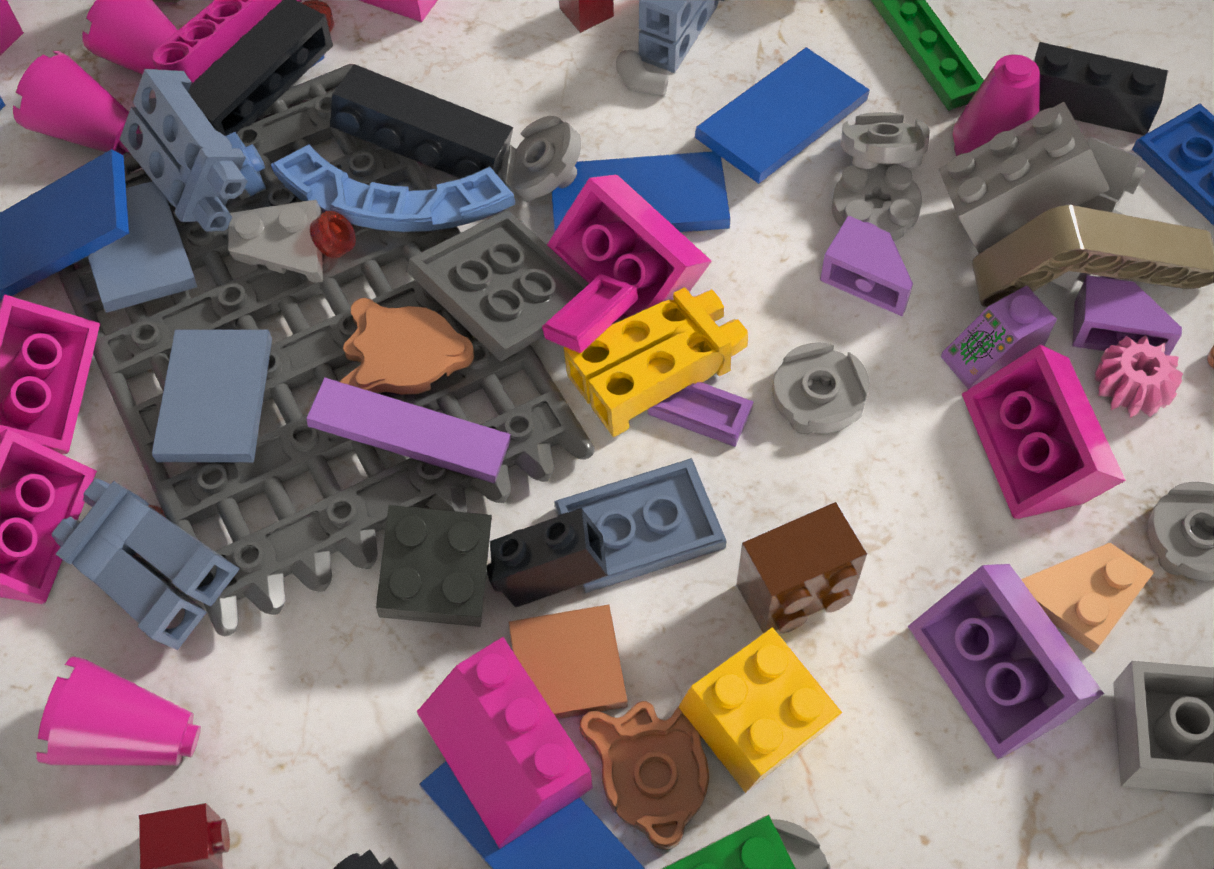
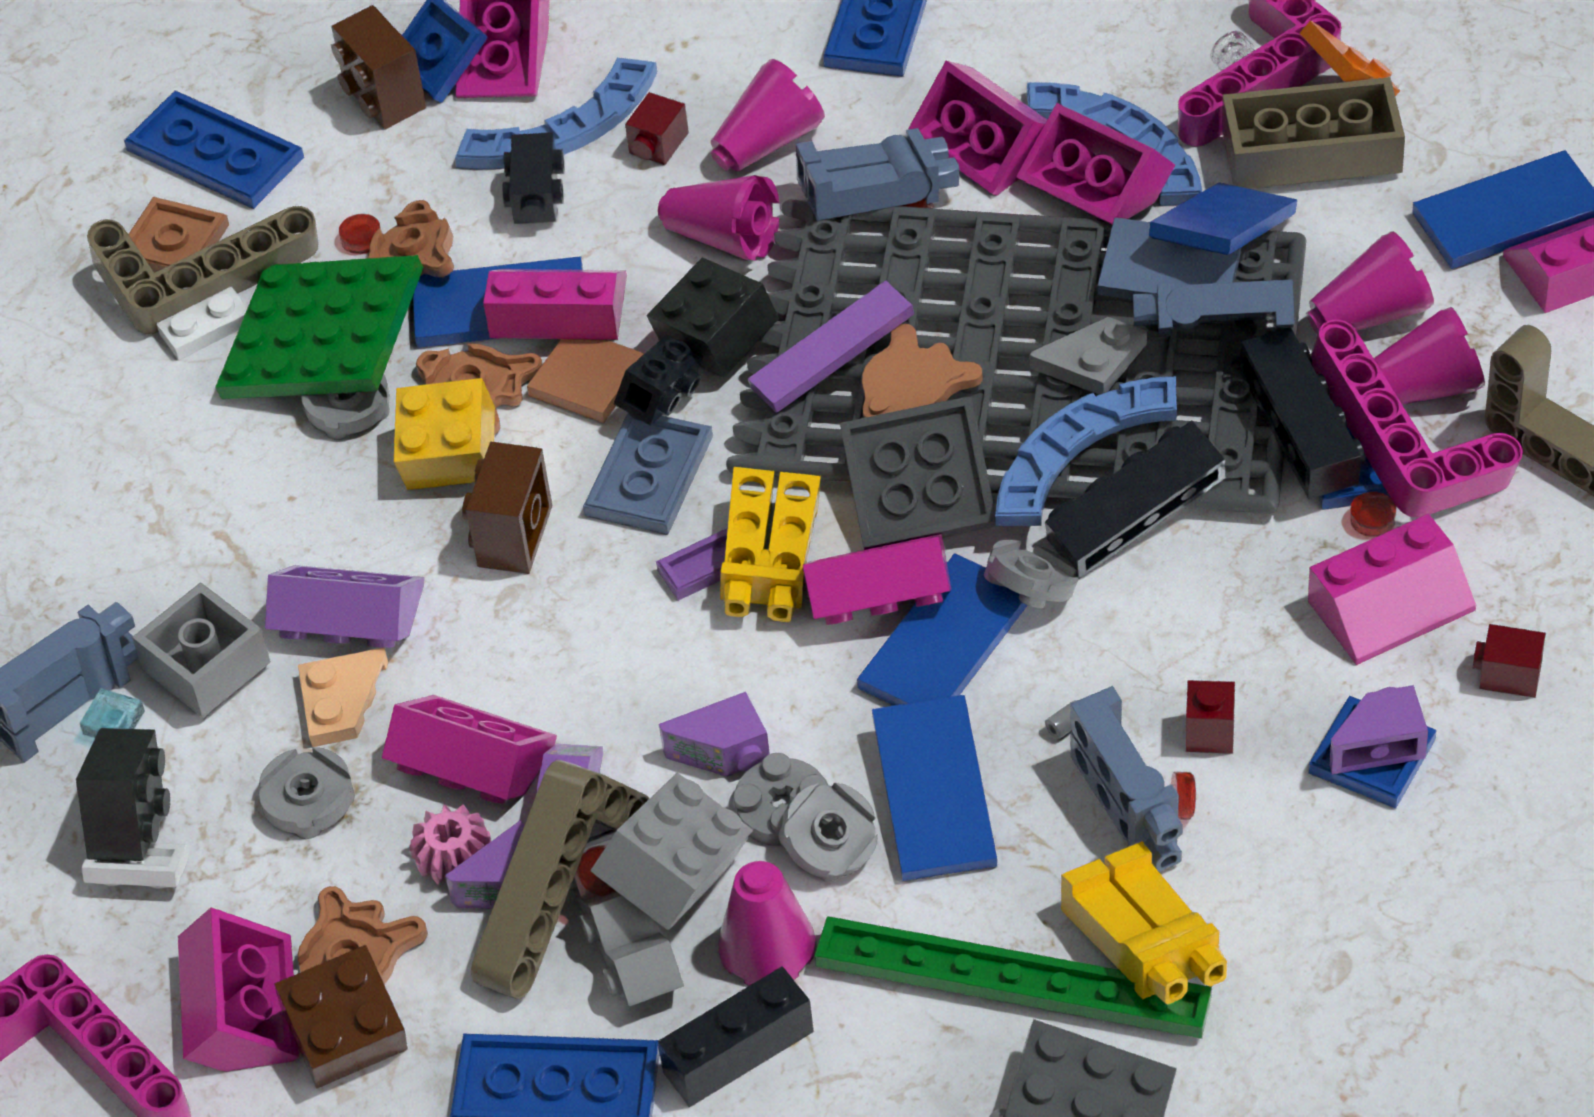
camera: 130 degrees right, 10 degrees down
(213, 396) = (973, 256): sand blue tile -> none
(251, 165) = (1187, 354): medium blue plate -> none
(284, 667) = (725, 214): none -> dark pink cone
(332, 234) = (1061, 382): clear red tile -> none
(590, 313) = (835, 509): dark pink tile -> none
(817, 412) = (650, 660): light grey plate -> none

